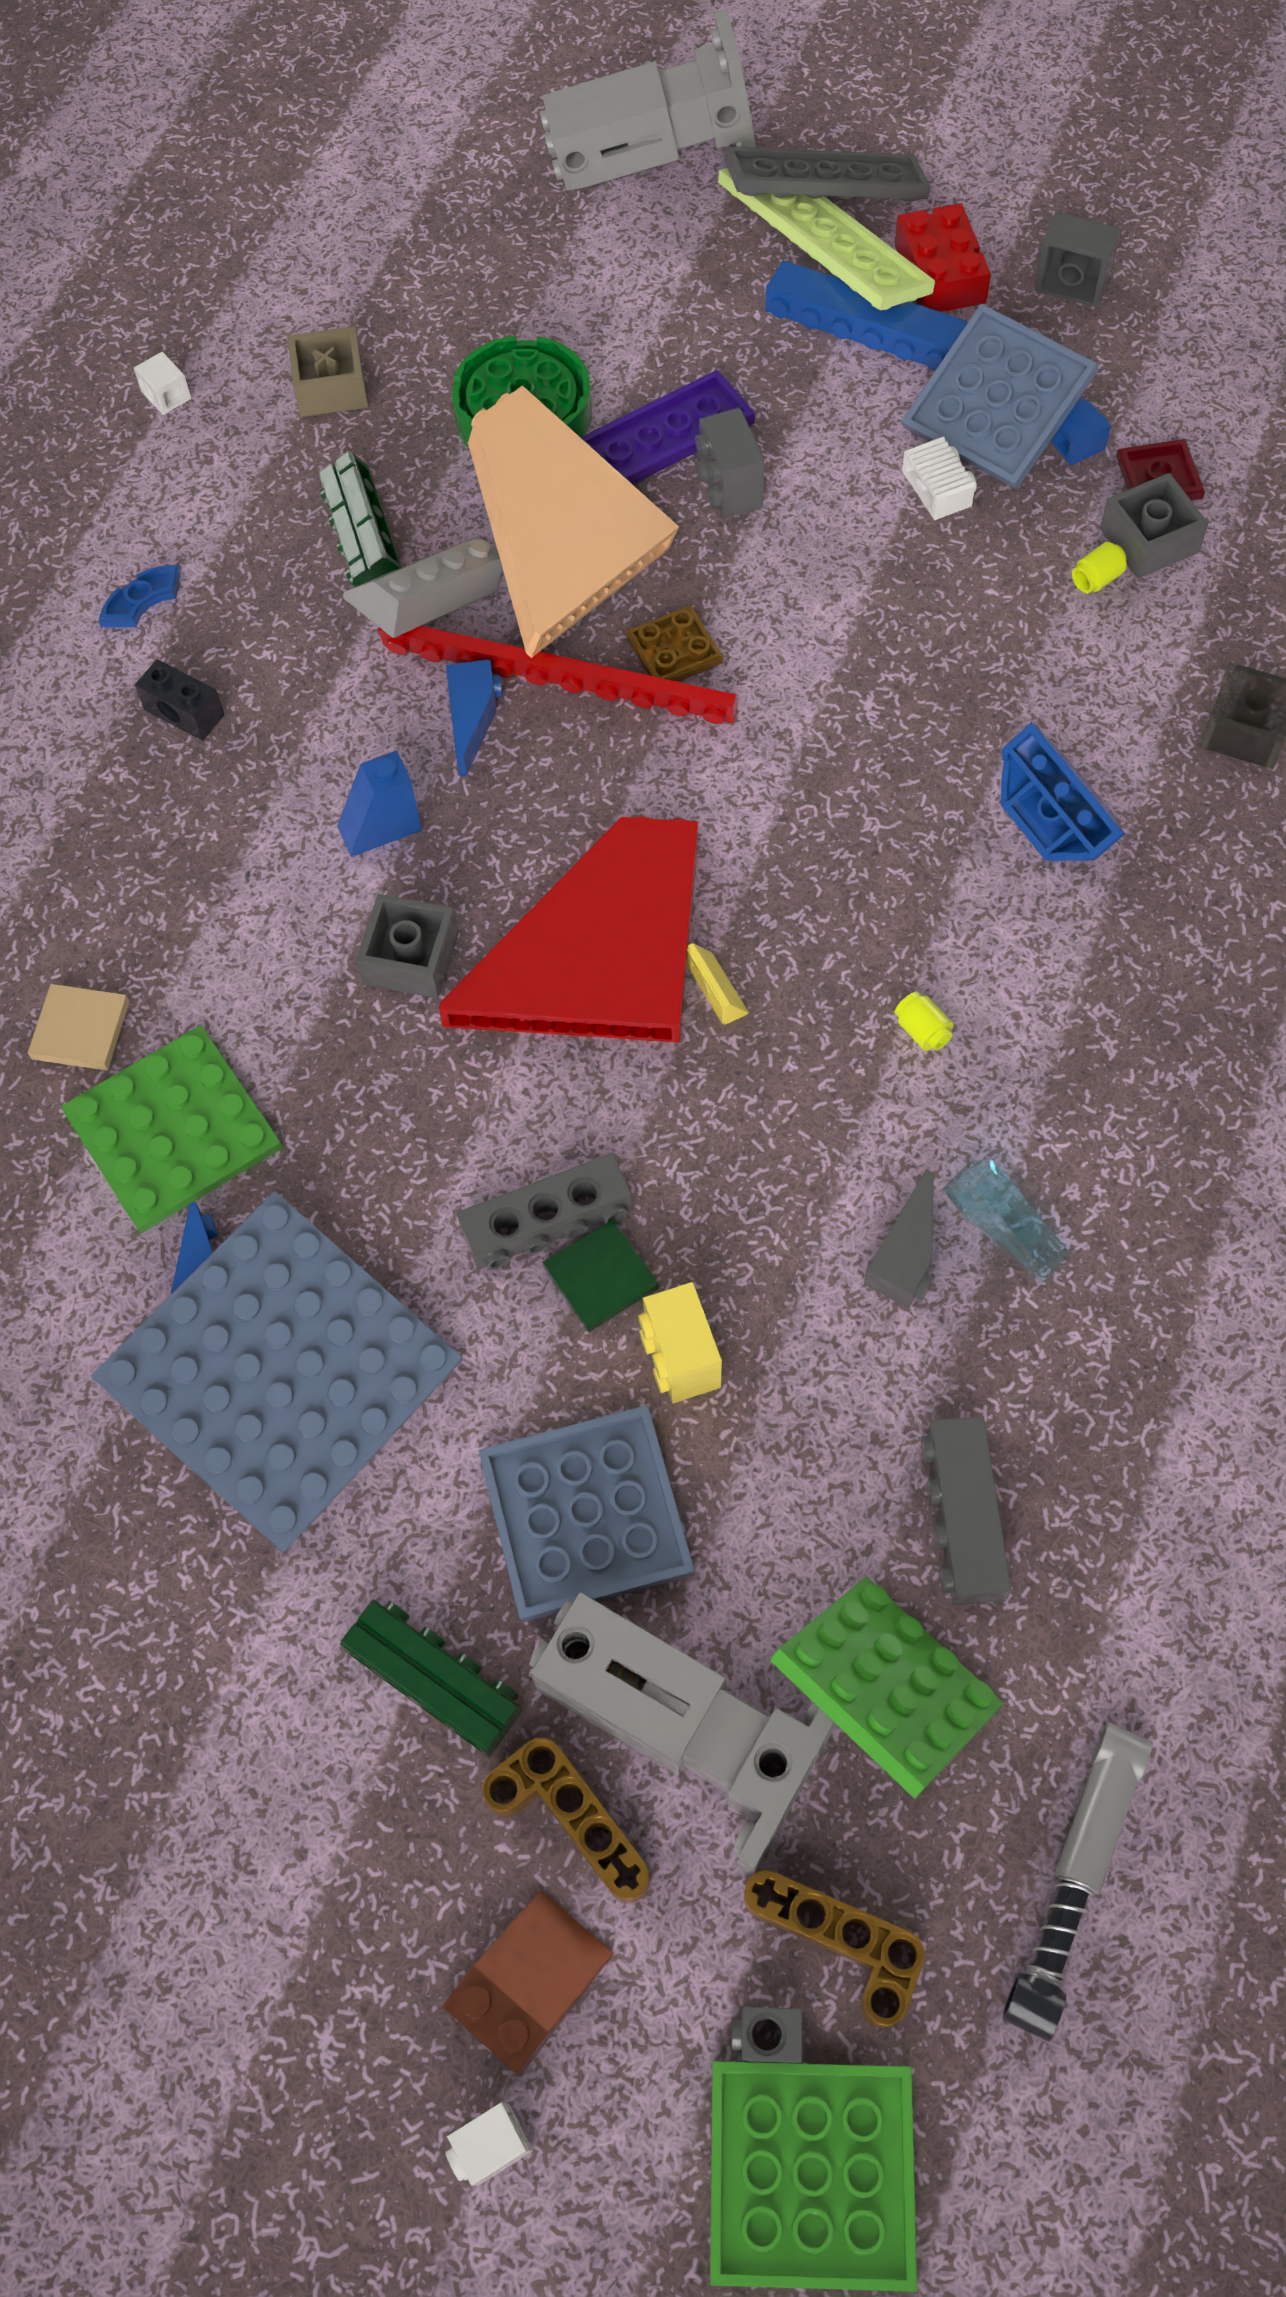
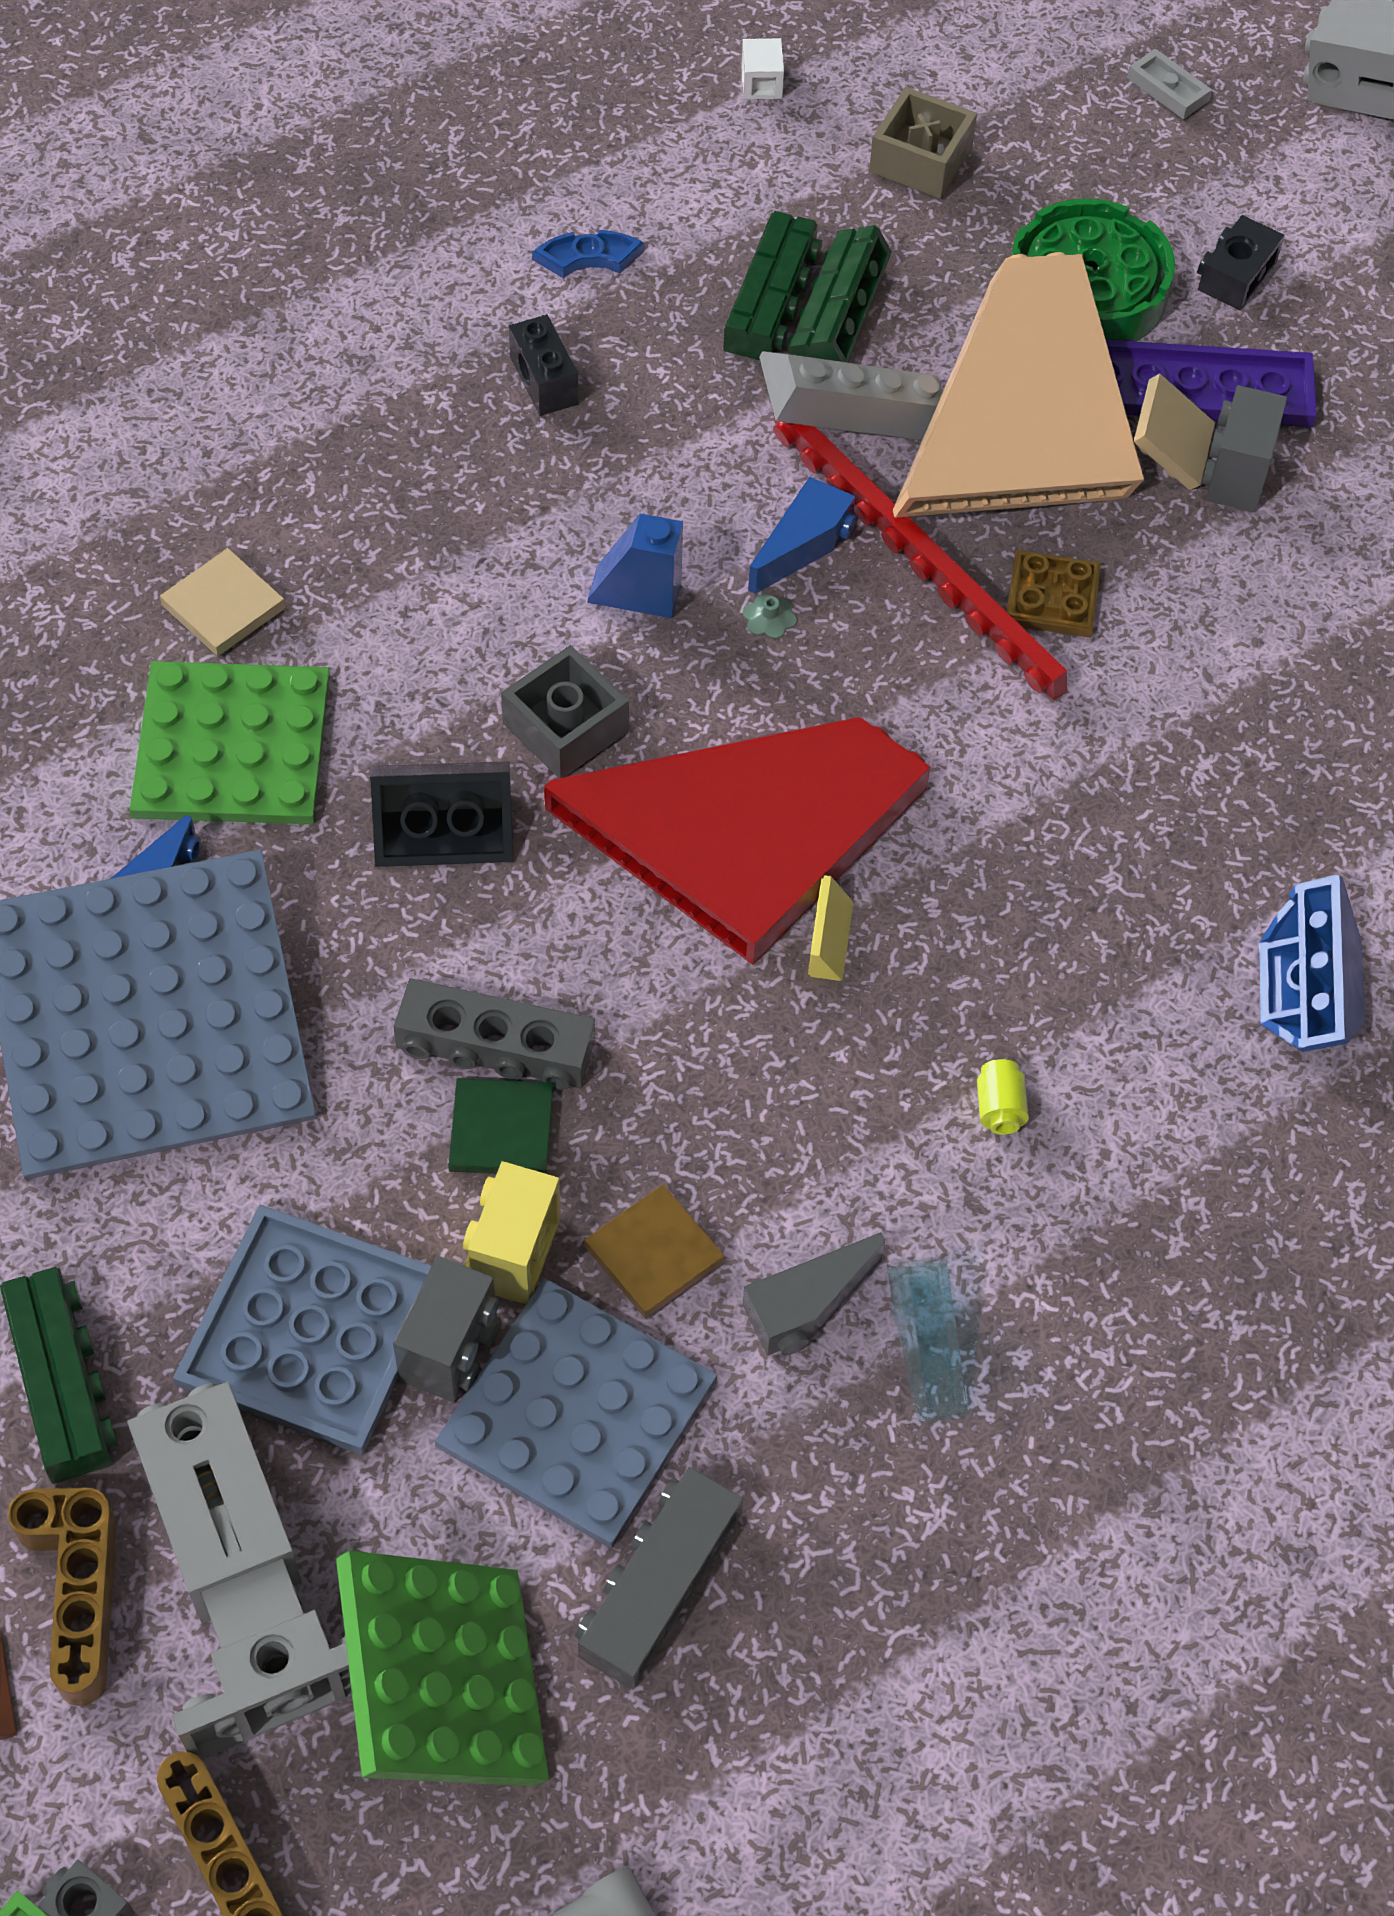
camera: 30 degrees right, 5 degrees down
(301, 543) = (772, 286): none -> dark green brick
(376, 1077) = (442, 813): none -> black slope
(465, 231) = (1169, 83): none -> light grey plate
(490, 785) = (769, 616): none -> sand green plant
(617, 333) = (1239, 261): none -> black brick
(671, 481) = (1174, 432): none -> tan tile
(691, 1444) = (447, 1330): none -> dark grey brick
(779, 1289) = (654, 1251): none -> pearl gold tile
(815, 1438) = (576, 1412): none -> sand blue plate

